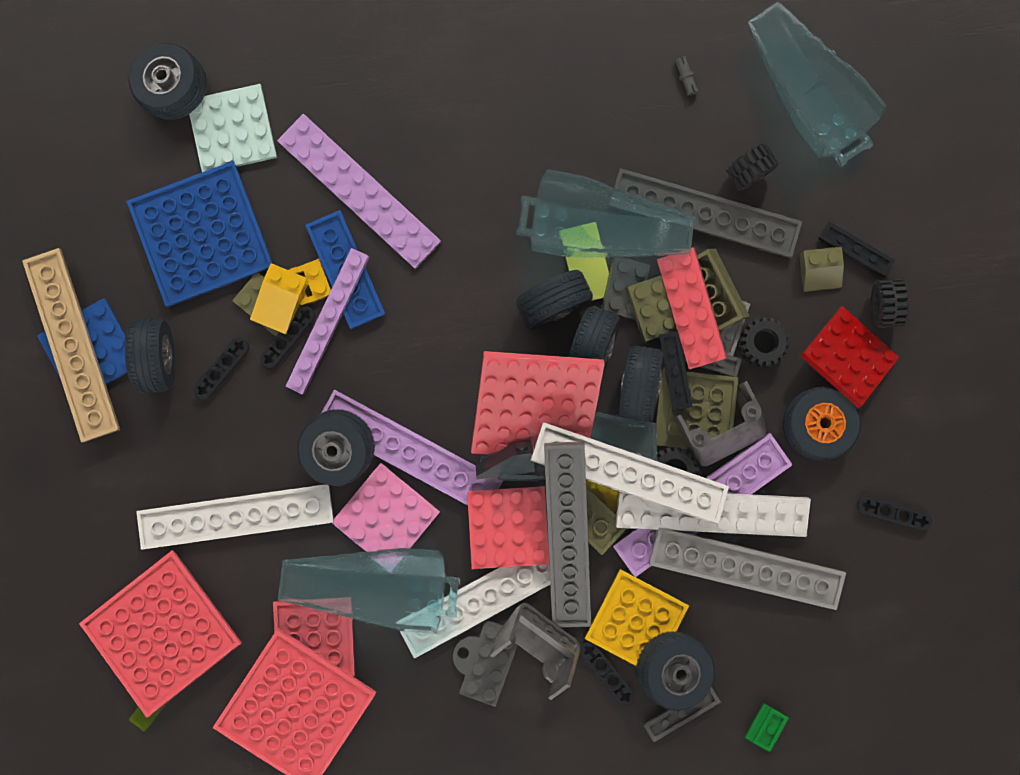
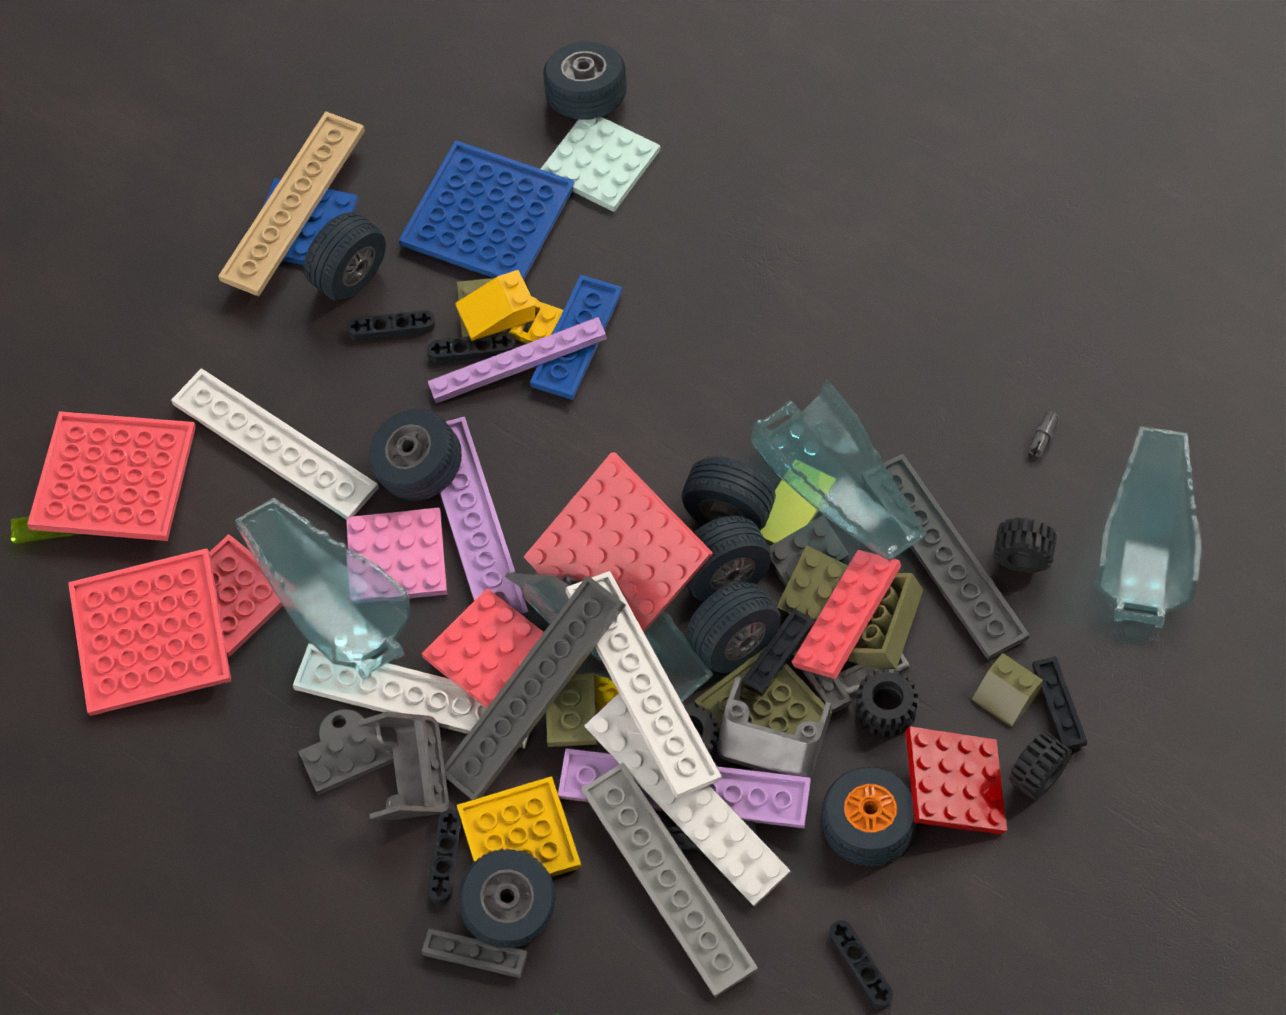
camera: 50 degrees right, 25 degrees down
(359, 191) = (654, 292): lavender plate -> none

